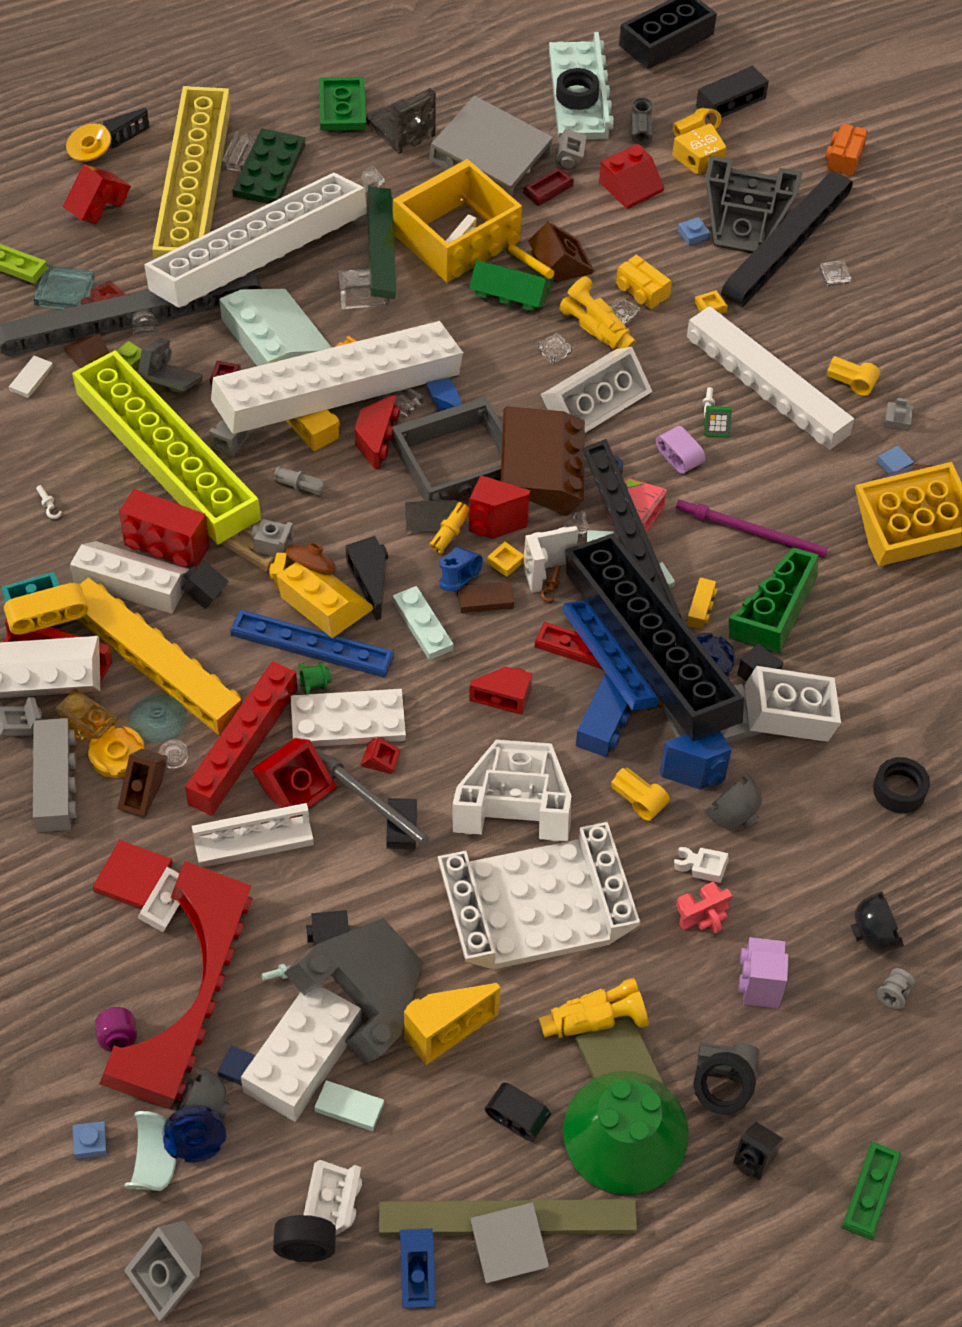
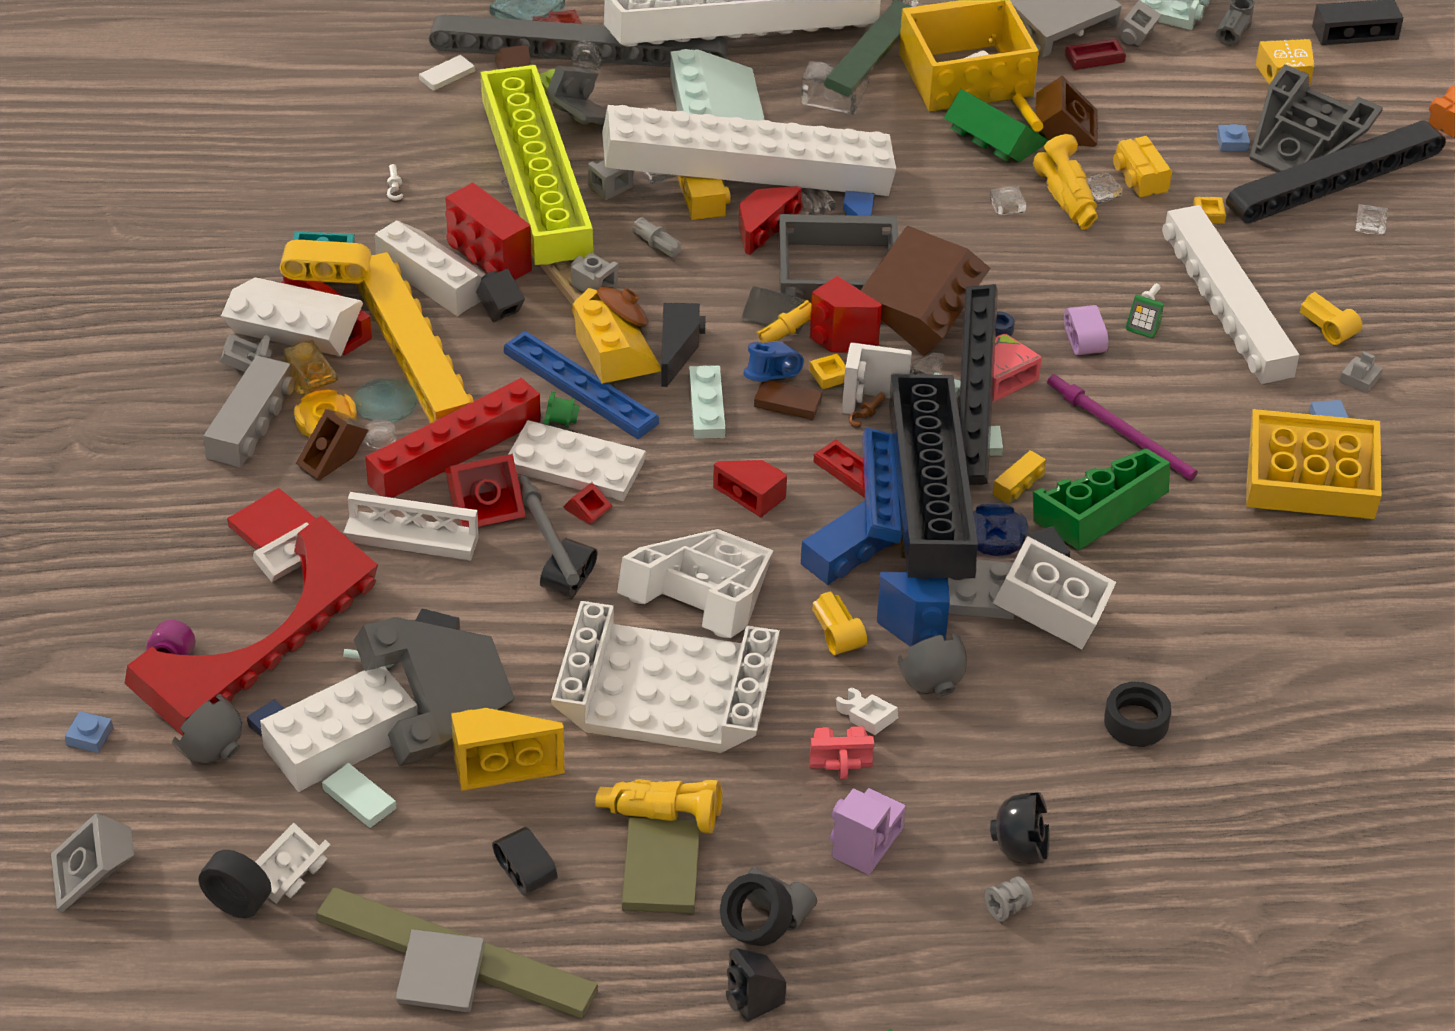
camera: 25 degrees right, 10 degrees down
(153, 1163) = (146, 762): light aqua piece -> none
(194, 1134) = (185, 755): clear blue tile -> none
(417, 1268) = (333, 956): blue slope -> none
(600, 388) = (1031, 249): white slope -> none
(625, 1133) = (626, 918): green cone -> none
(630, 176) = (1191, 66): red slope -> none
(696, 121) = (1298, 33): yellow piece -> none

